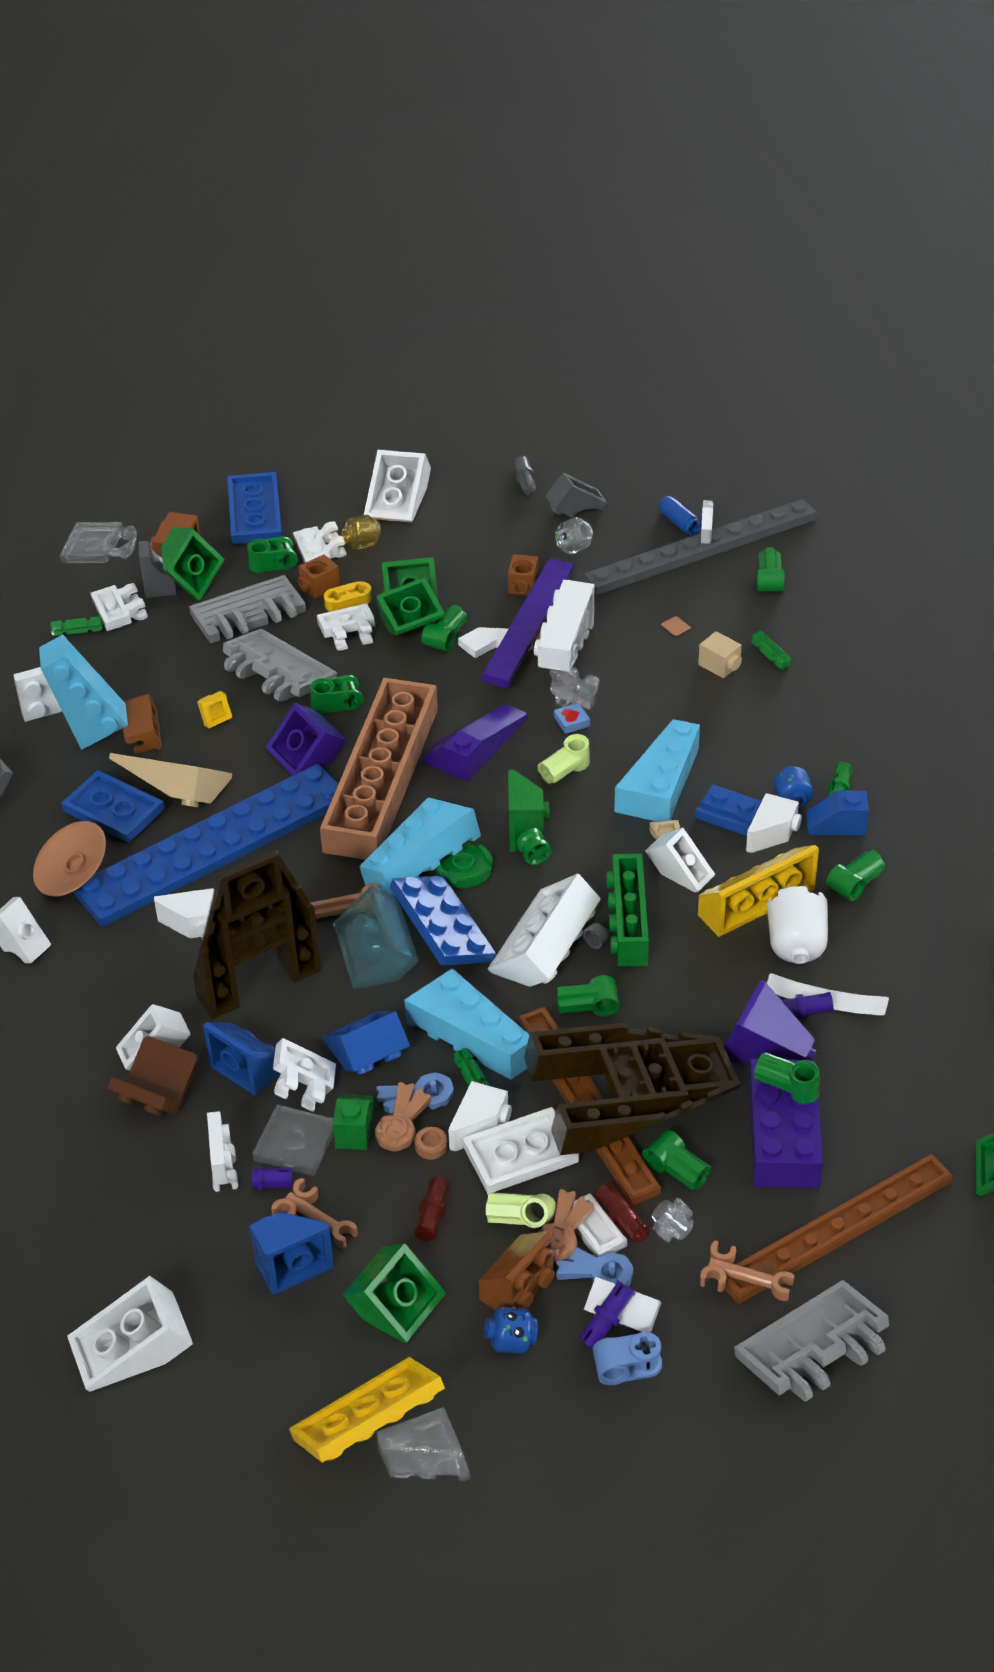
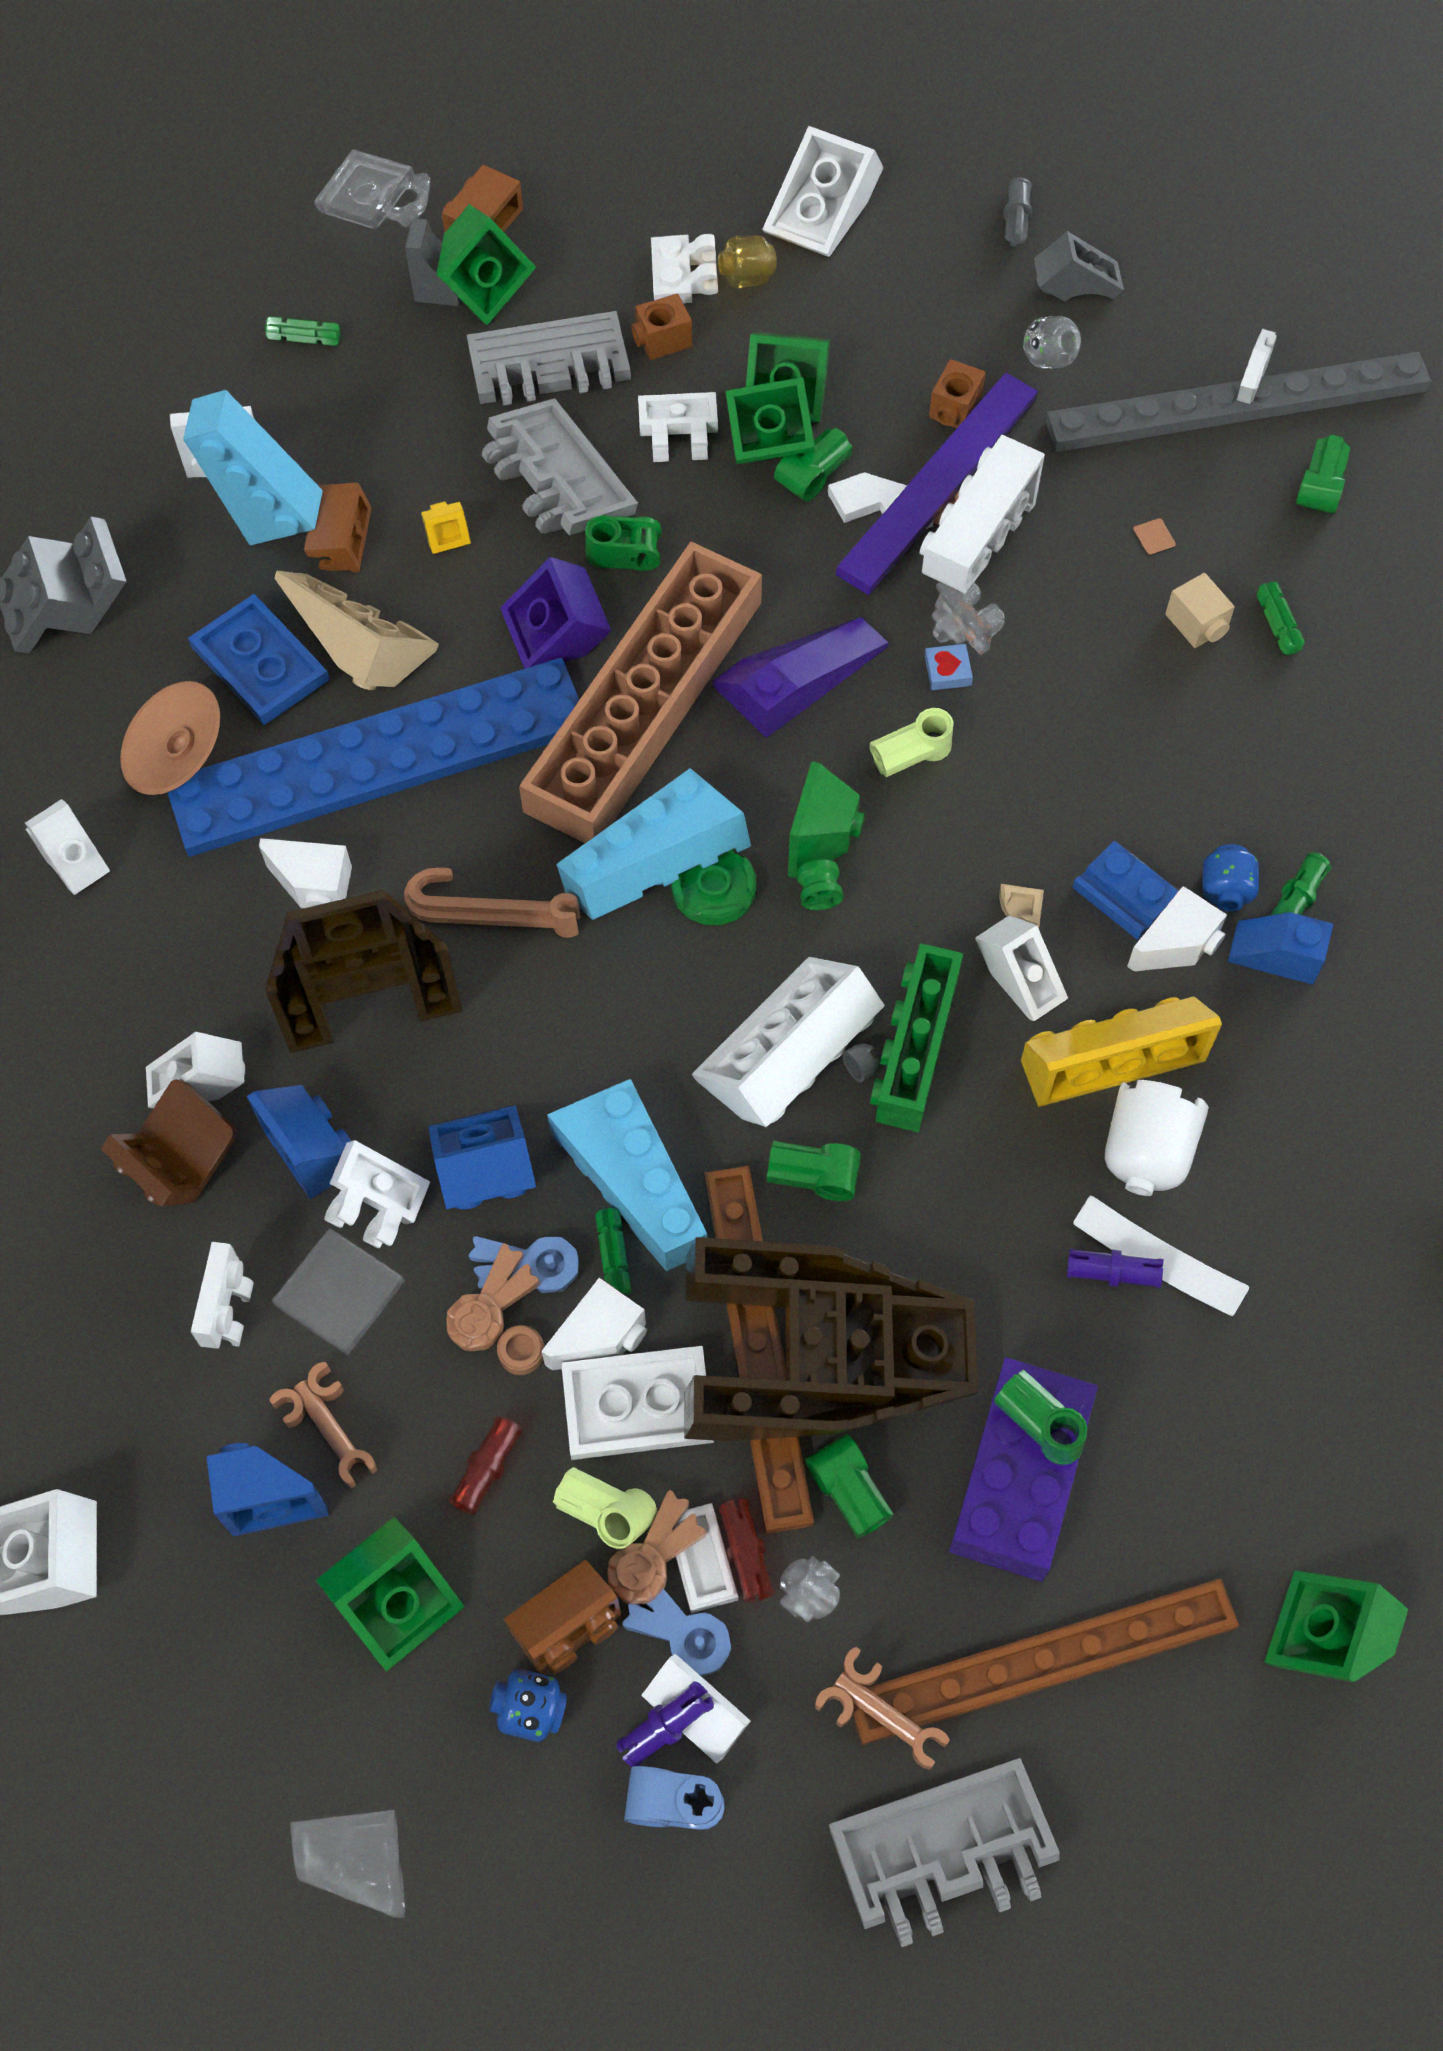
camera: 15 degrees right, 20 degrees up
(112, 609) = (358, 311): white plate -> none
(254, 507) = (610, 180): blue plate -> none
(269, 553) = (603, 270): green piece -> none
(271, 1178) = (284, 1350): dark purple pin -> none
(347, 596) = (695, 370): yellow beam -> none
(353, 1121) = (425, 1282): green slope -> none
(366, 1409) = (289, 1781): yellow plate -> none
(375, 940) = (547, 987): clear light blue slope -> none
(442, 920) = (649, 980): blue plate -> none
(660, 774) = (1040, 808): medium azure wedge -> none
(680, 515) = (1223, 339): blue piece -> none
(770, 1029) = (1049, 1310): slope -> none
(852, 879) = (1263, 1064): green piece -> none

